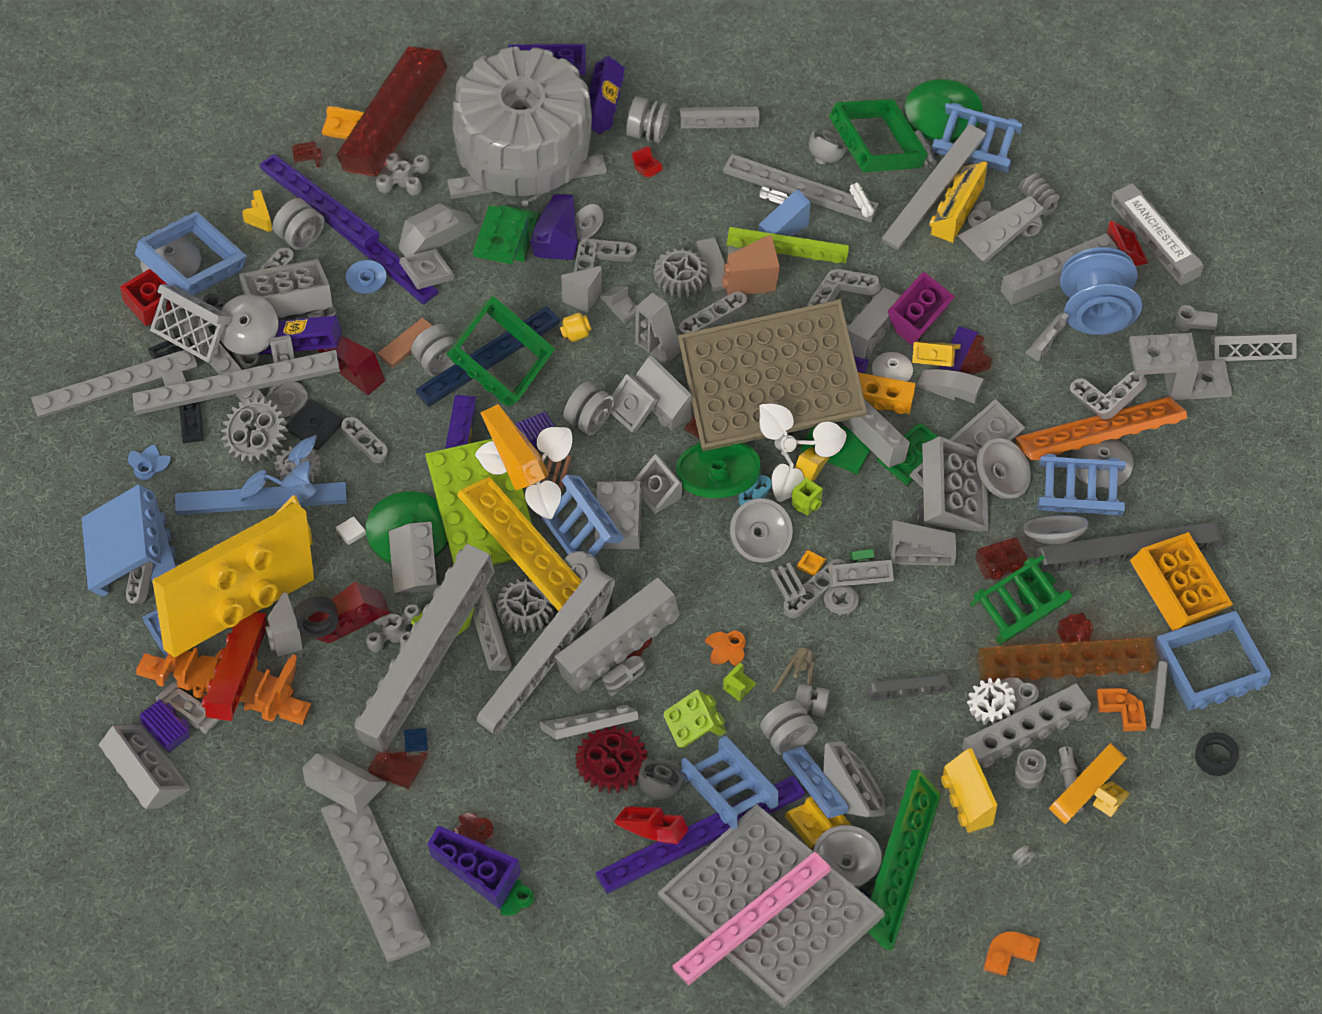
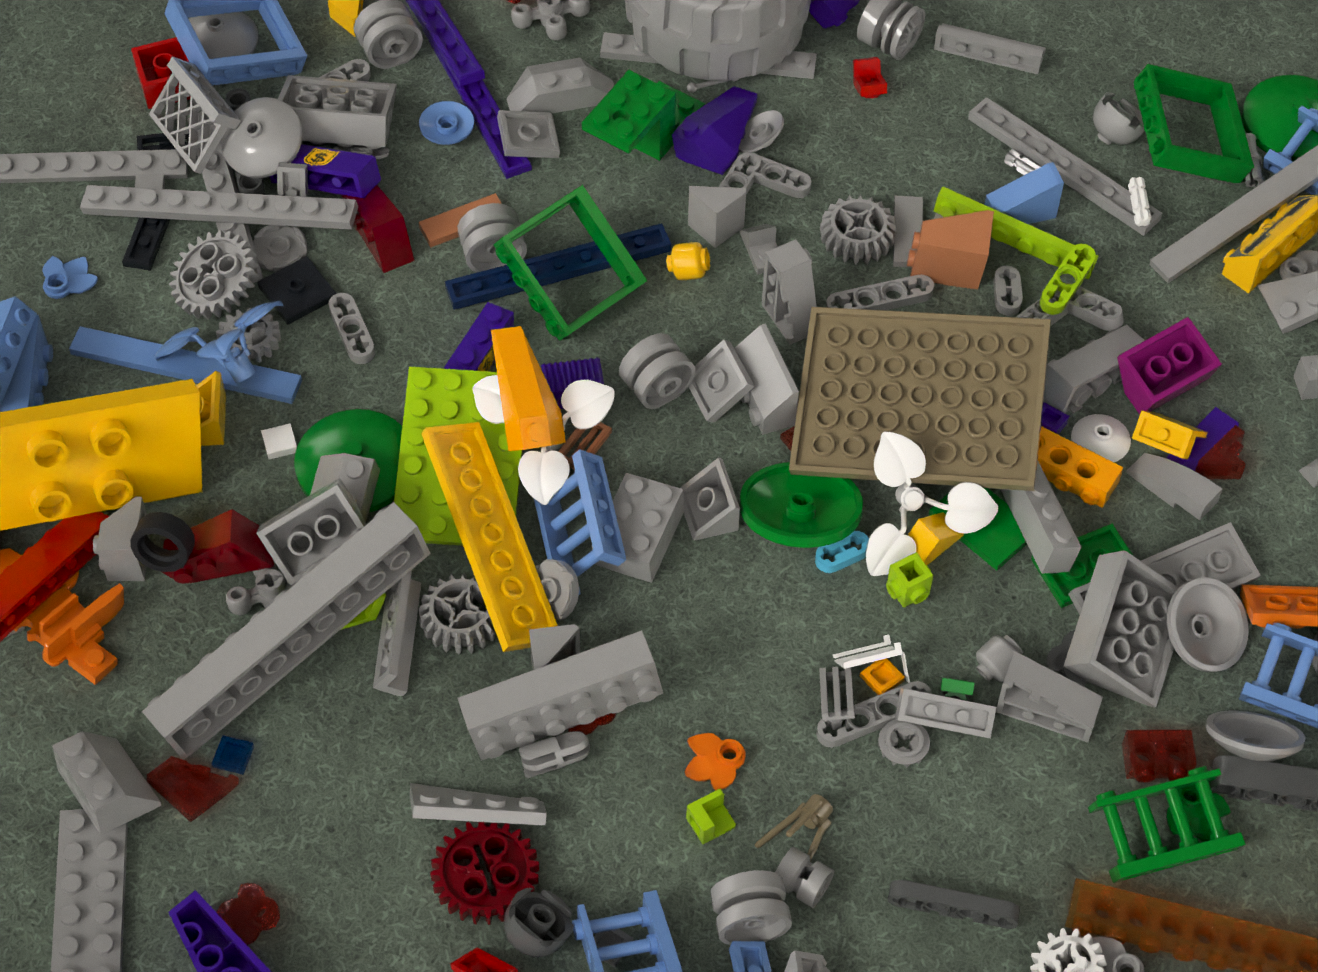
camera: 20 degrees right, 0 degrees up
(412, 580) = (311, 529): none -> light grey slope
(541, 655) = (438, 693): light grey beam -> none
(694, 718) = (626, 848): lime bracket -> none
(774, 530) = (847, 602): light grey dish -> none
(792, 287) = (1002, 290): none -> light grey beam
(801, 552) = (873, 655): none -> white piece
(837, 275) = (1067, 290): none -> lime beam
(879, 529) = (996, 656): none -> light grey head
(1075, 628) = (1233, 895): clear red brick -> none

